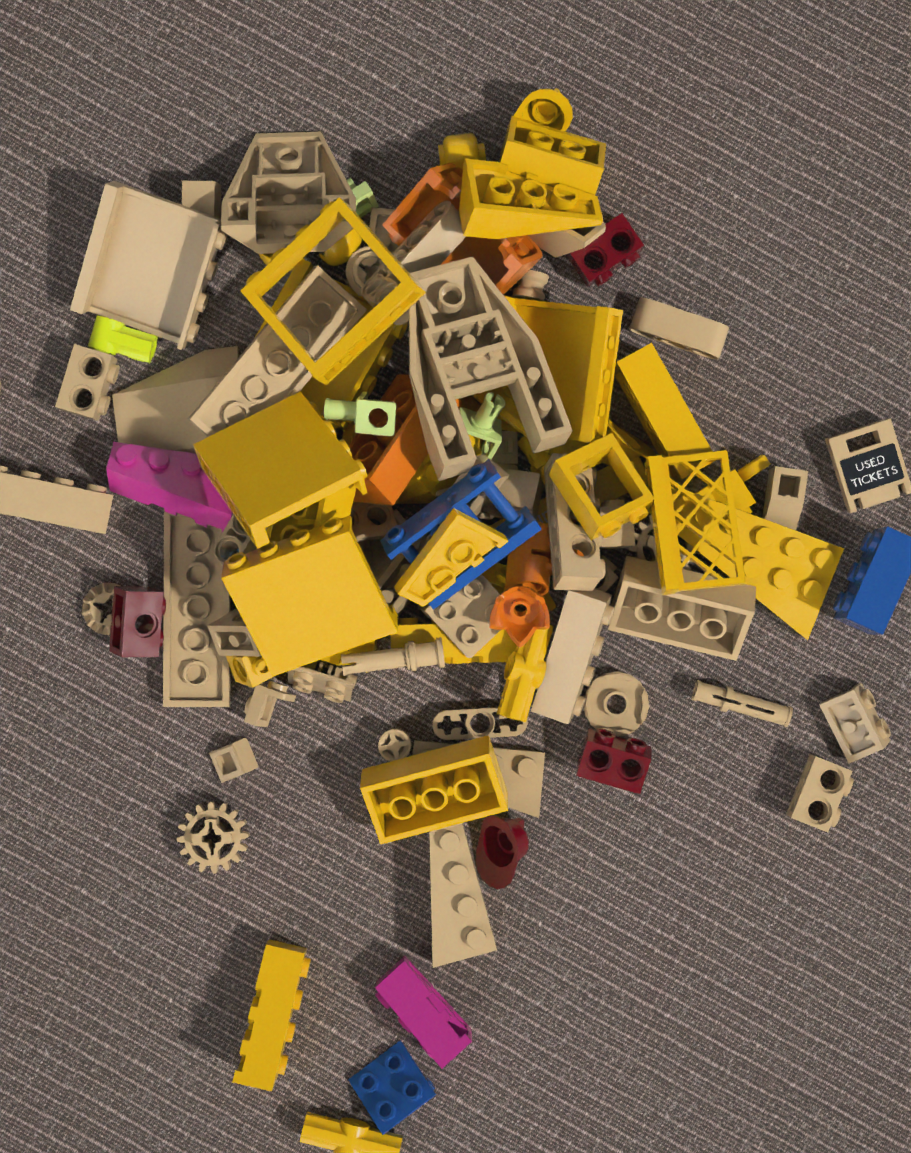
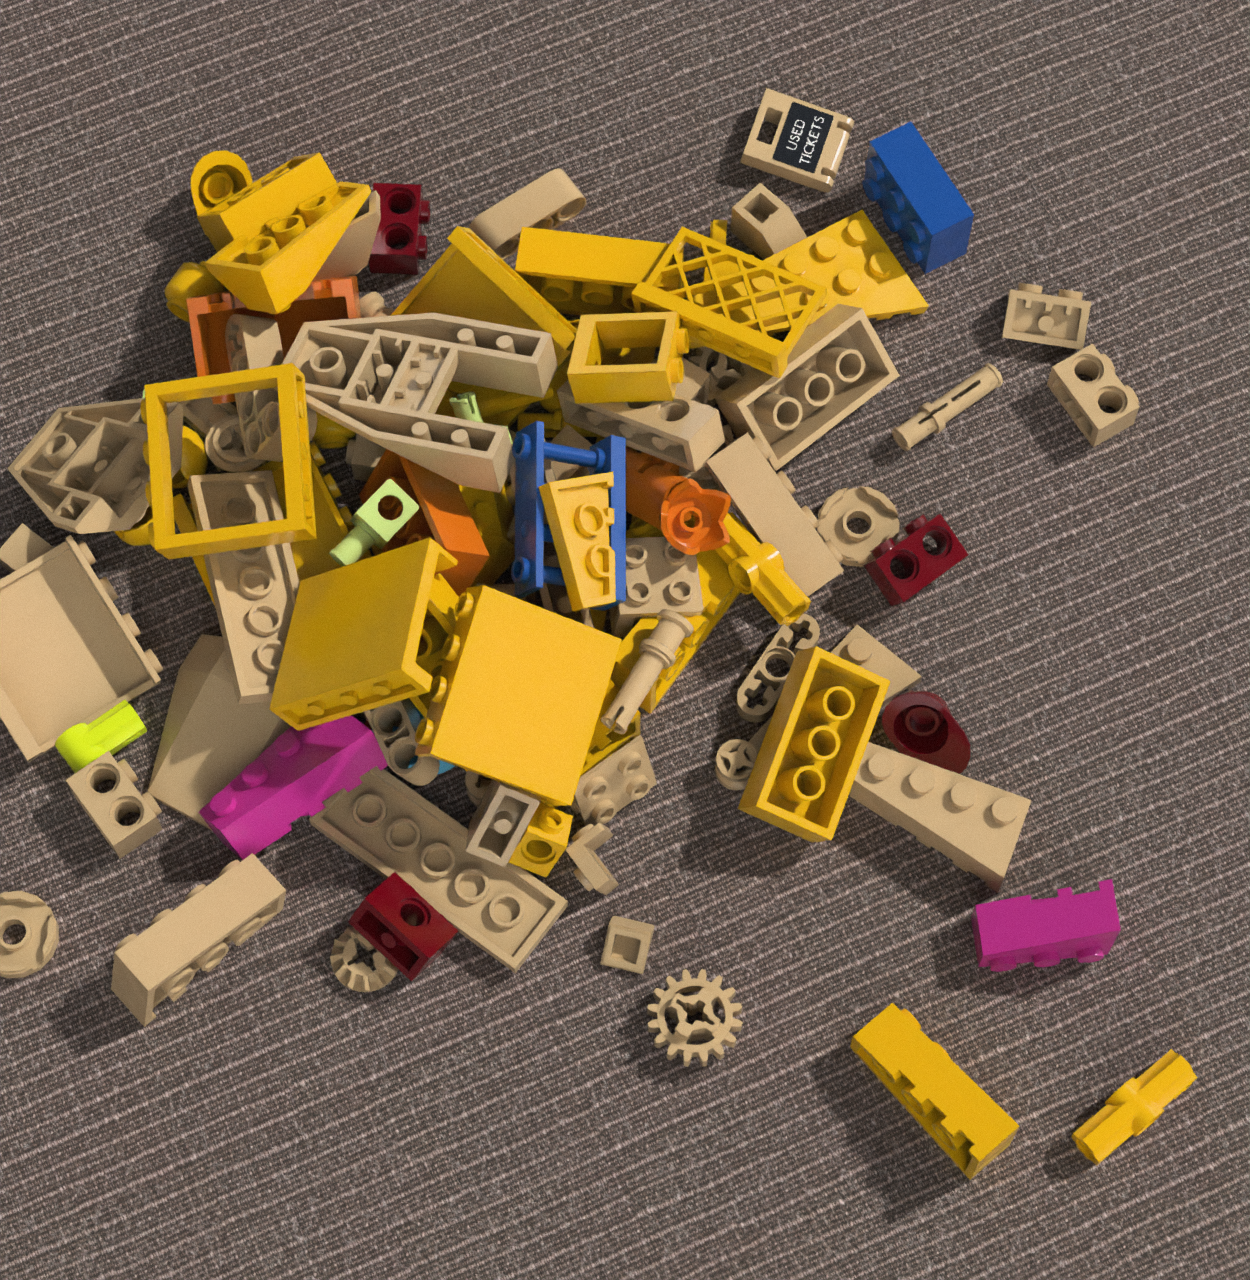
camera: 55 degrees left, 20 degrees down
(392, 1087) = (1106, 1024): blue hinge -> none

